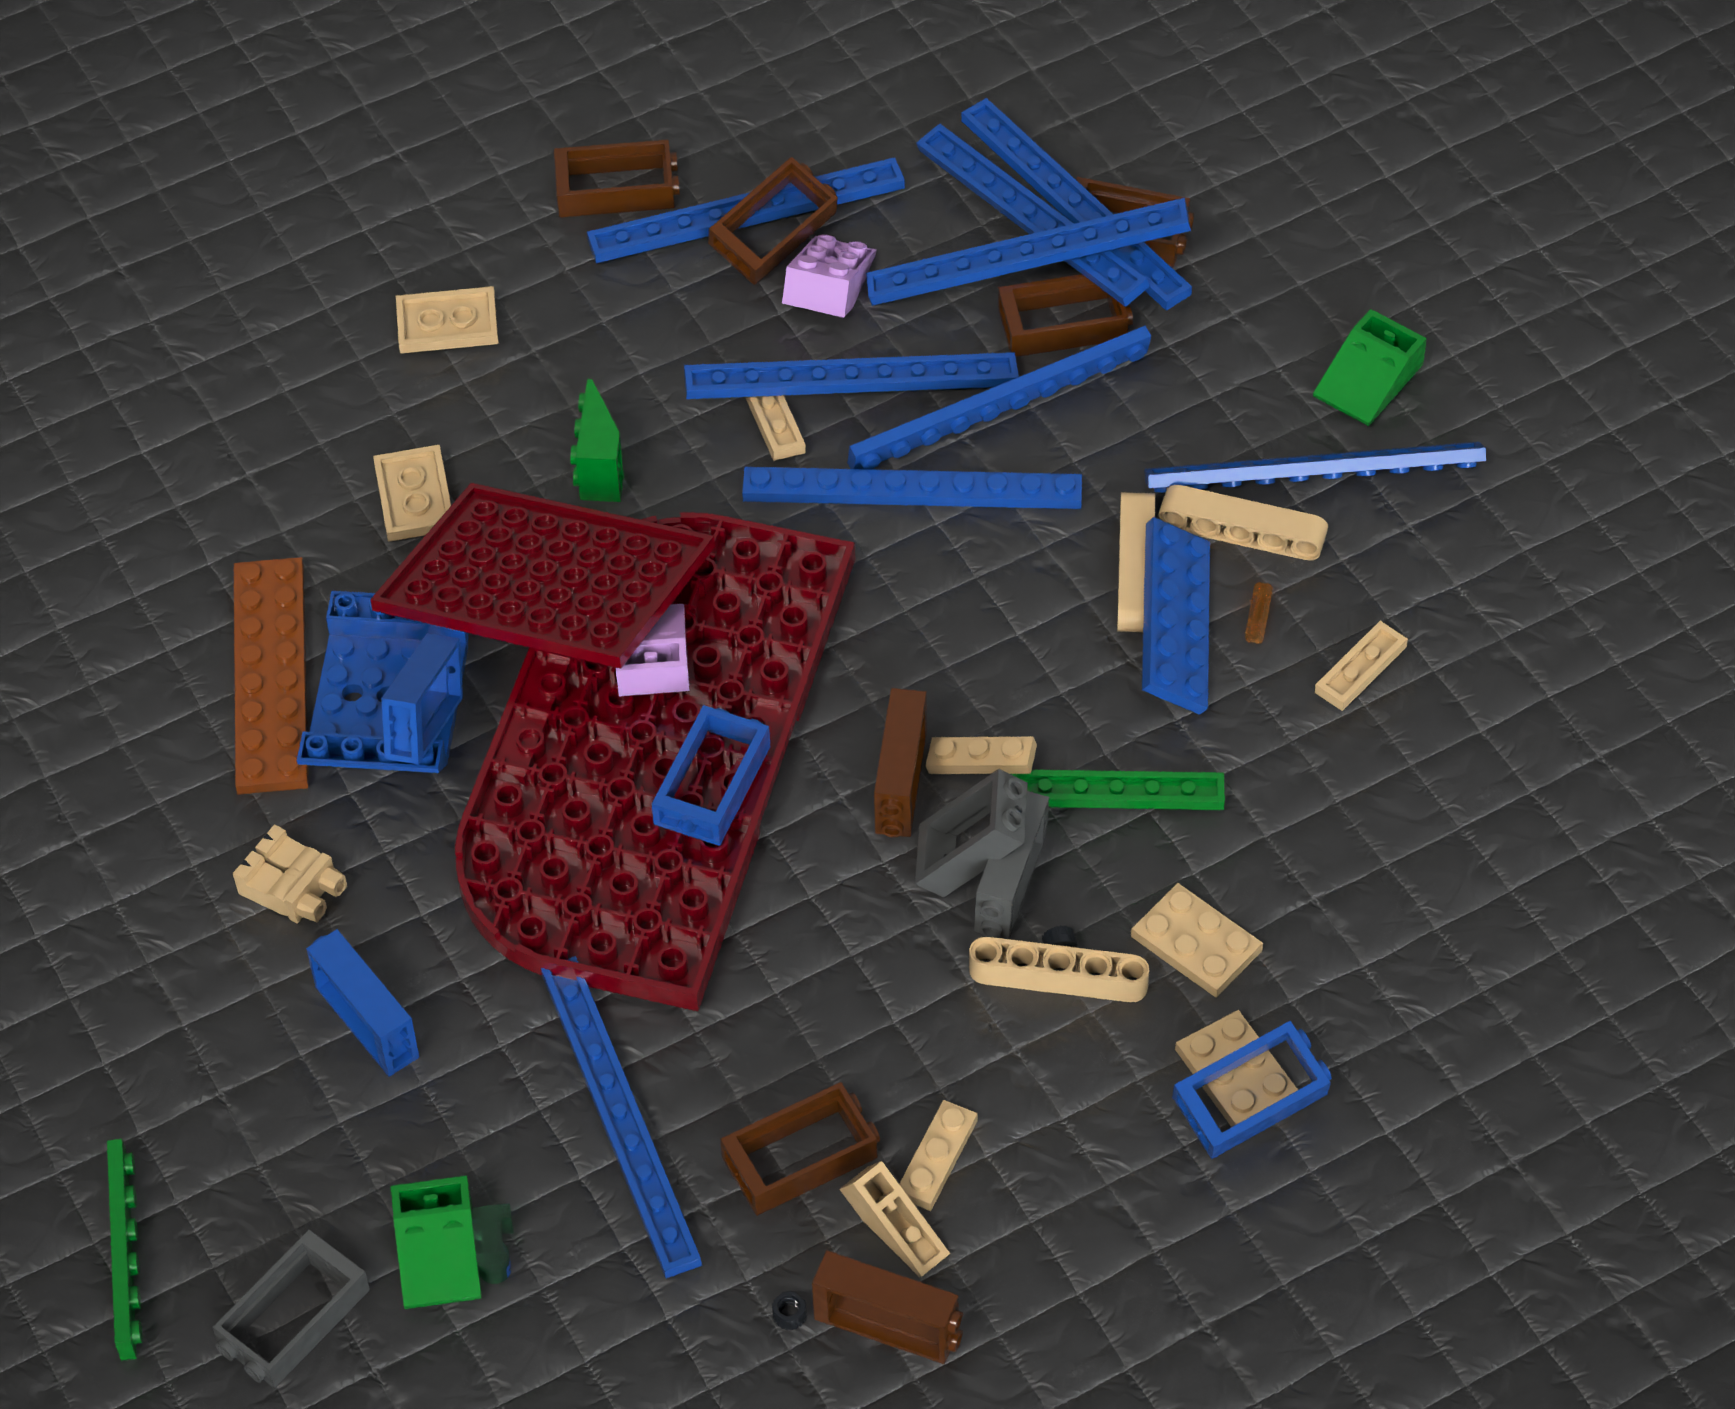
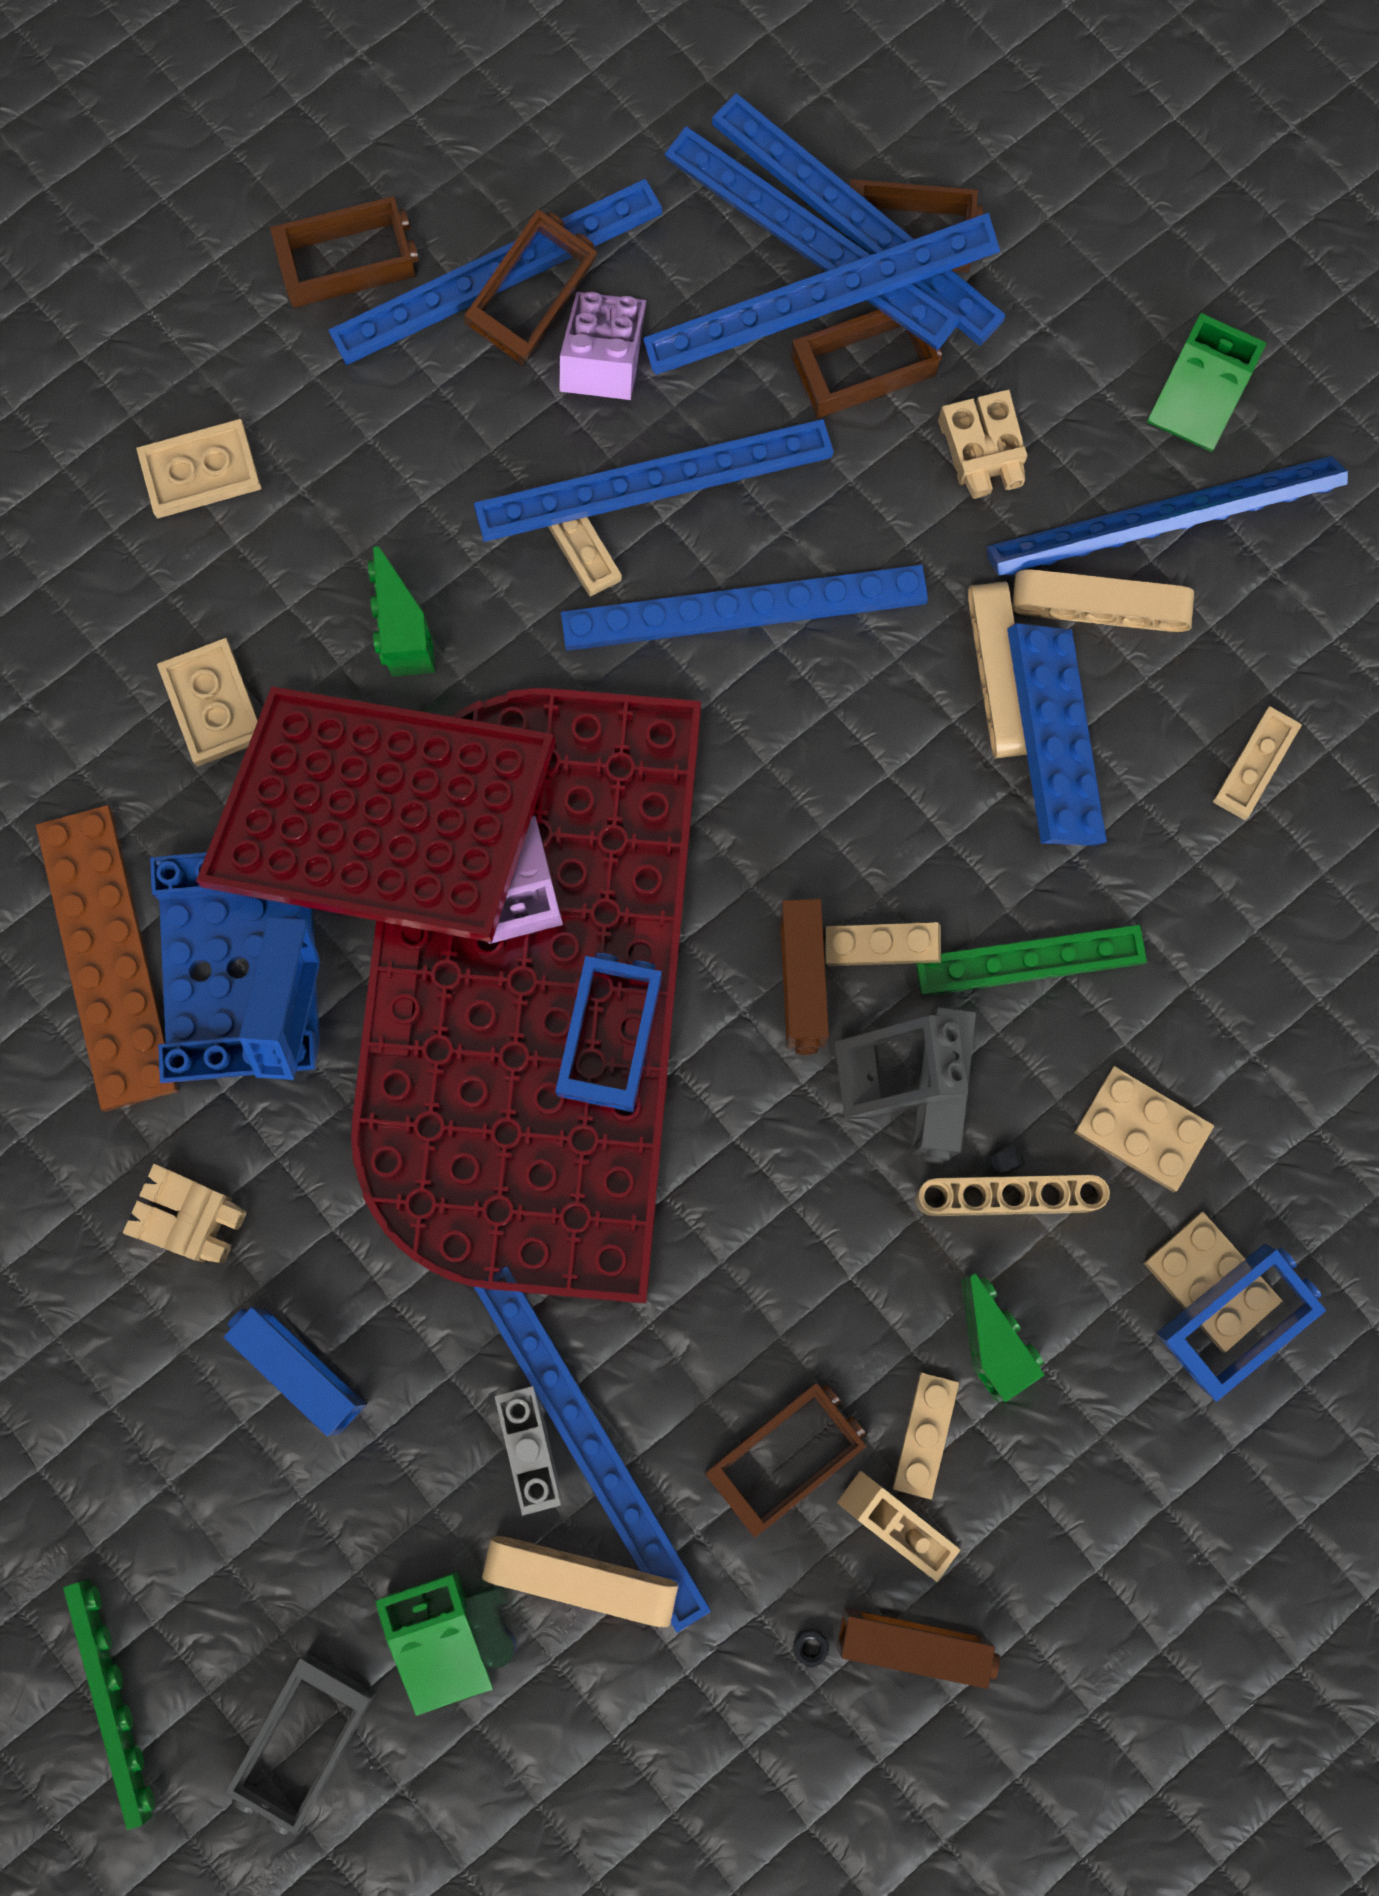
camera: 10 degrees left, 25 degrees up
(560, 1094) = (528, 1450): none -> light grey slope
(585, 1211) = (580, 1581): none -> tan beam
(992, 402) = (807, 492): blue plate -> none
(1020, 1083) = (995, 1348): none -> green slope
(1158, 392) = (985, 442): none -> tan hips
(1258, 612) = (1138, 711): clear orange axle -> none

